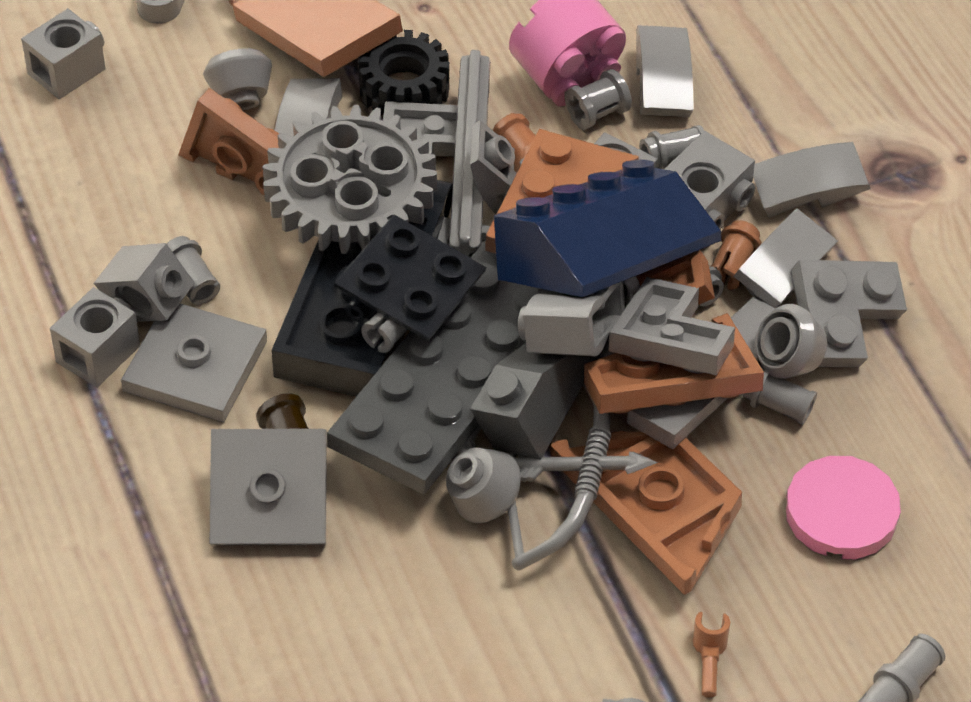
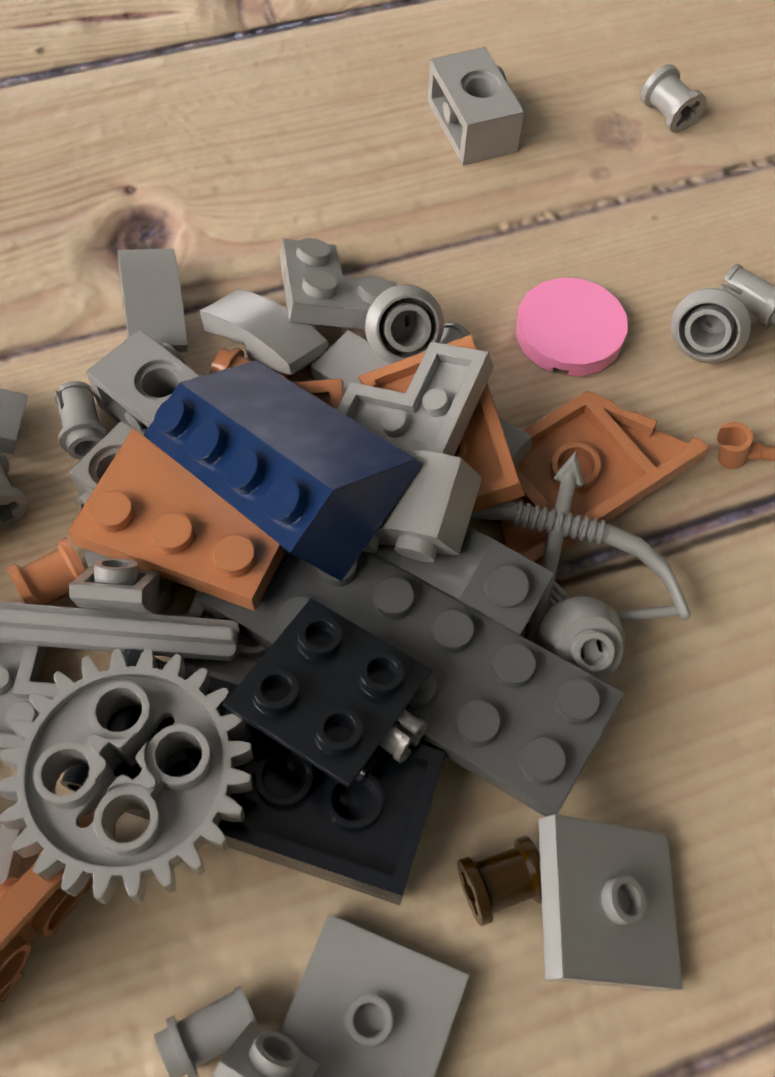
camera: 90 degrees left, 10 degrees up
(854, 614) = (711, 325): none -> light grey cone

